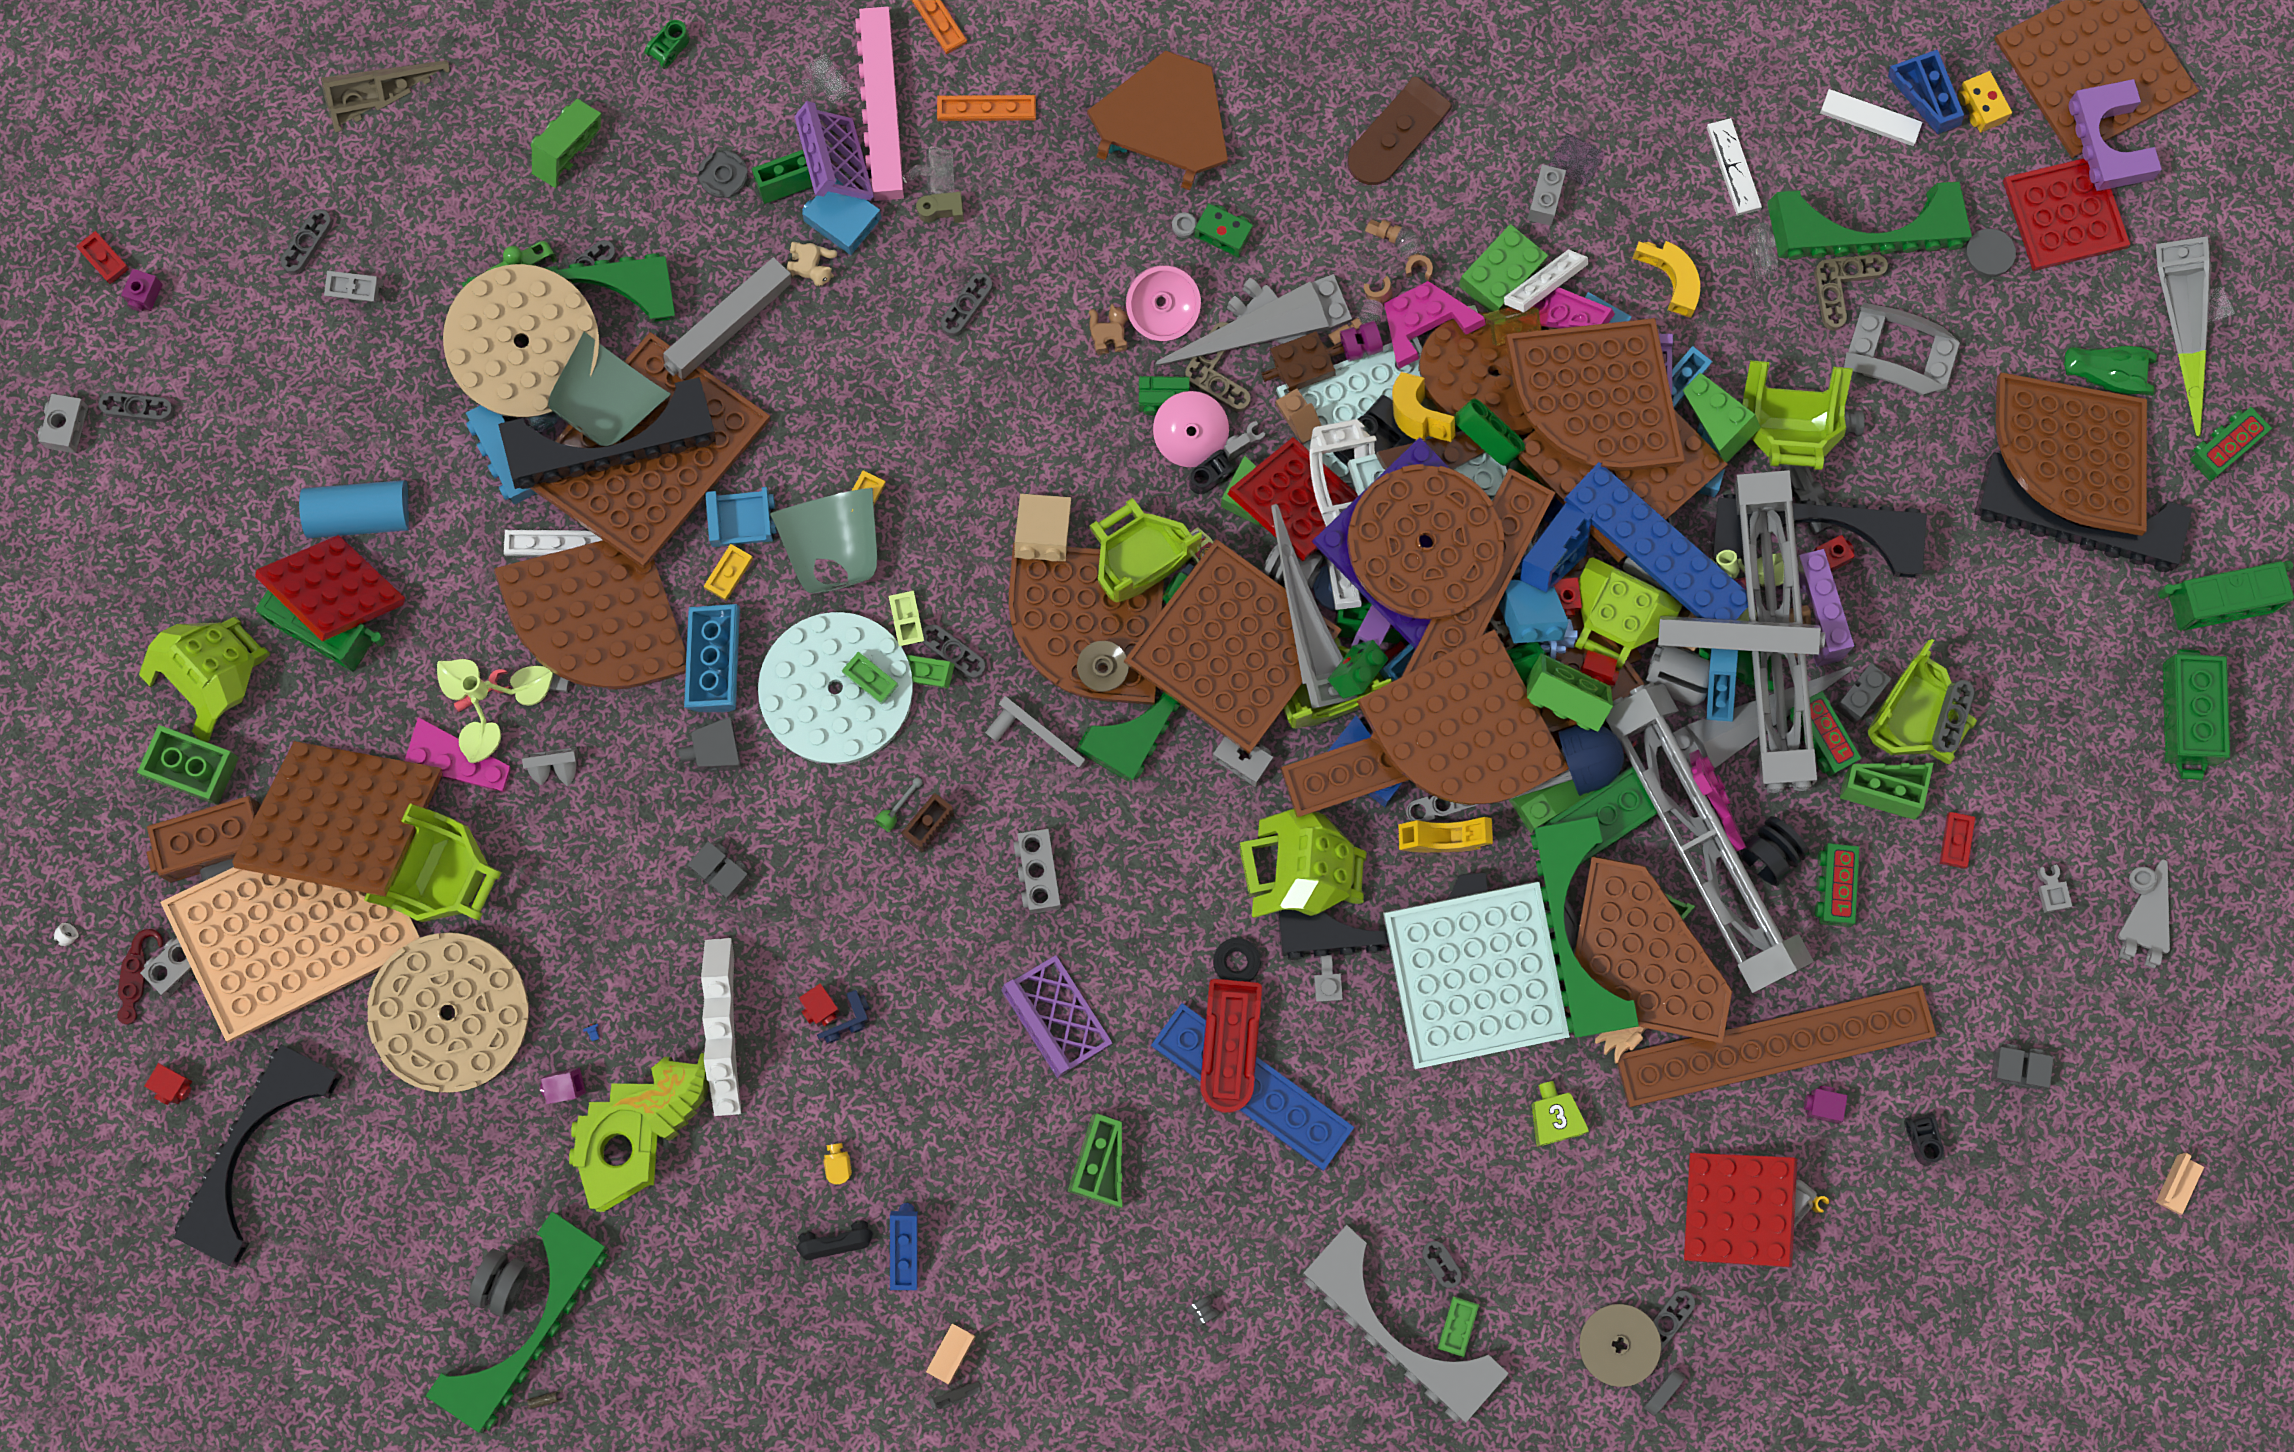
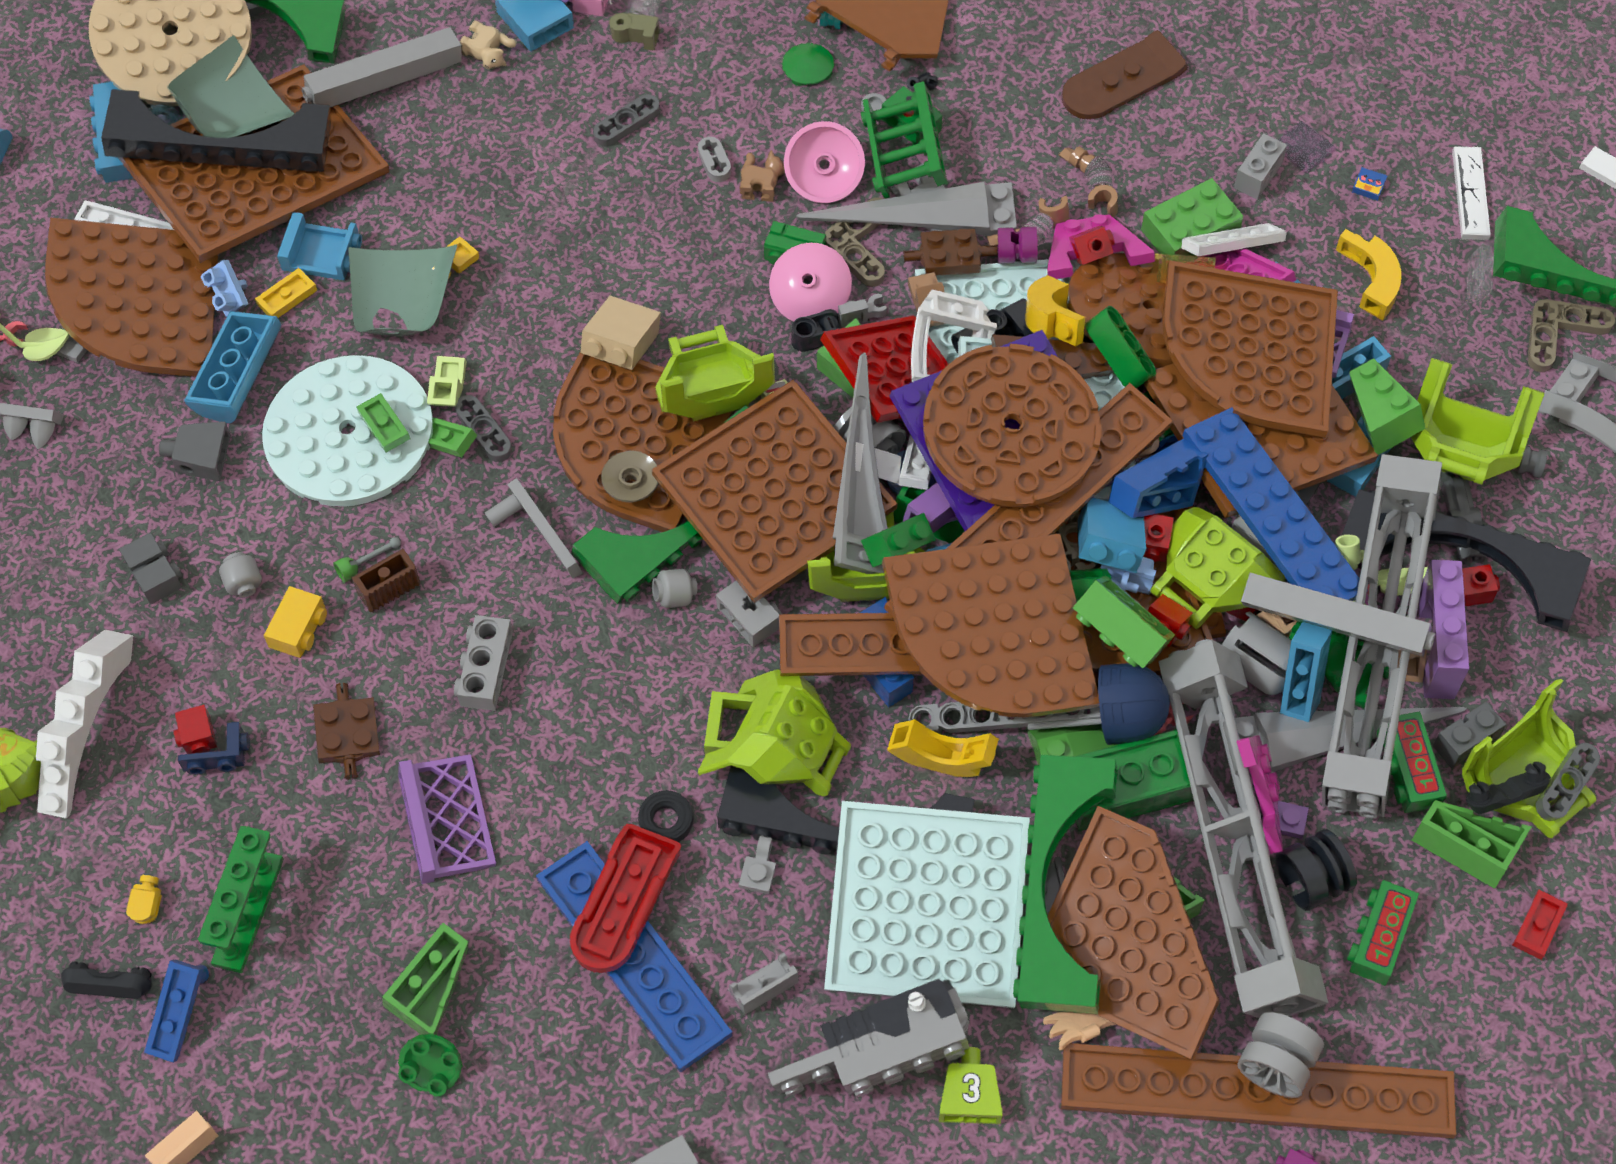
camera: 20 degrees right, 15 degrees down
(675, 584) = (226, 286): none -> light blue hips
(799, 854) = (240, 574): none -> light grey head
(863, 883) = (295, 622): none -> yellow brick
(922, 1143) = (240, 899): none -> green fence
(944, 965) = (346, 730): none -> reddish brown plate
(1065, 320) = (719, 157): none -> light grey beam
(1110, 198) = (808, 64): none -> green dish
(1125, 1228) = (429, 1064): none -> green dish
(1173, 755) = (674, 588): none -> light grey head
(1220, 187) = (930, 81): none -> black arm
(1253, 264) = (928, 146): none -> green fence
(1321, 594) = (887, 463): none -> white sticker
(1364, 1078) = (764, 984): none -> light grey hinge
(1428, 325) = (1092, 244): none -> red brick
(1483, 1102) = (884, 1042): none -> light grey piece
(1644, 182) = (1369, 183): none -> blue tile
(1741, 808) = (1292, 819): none -> medium lavender plate
(1791, 1011) = (1281, 1054): none -> light grey wheel
(1910, 739) = (1487, 797): none -> black piece

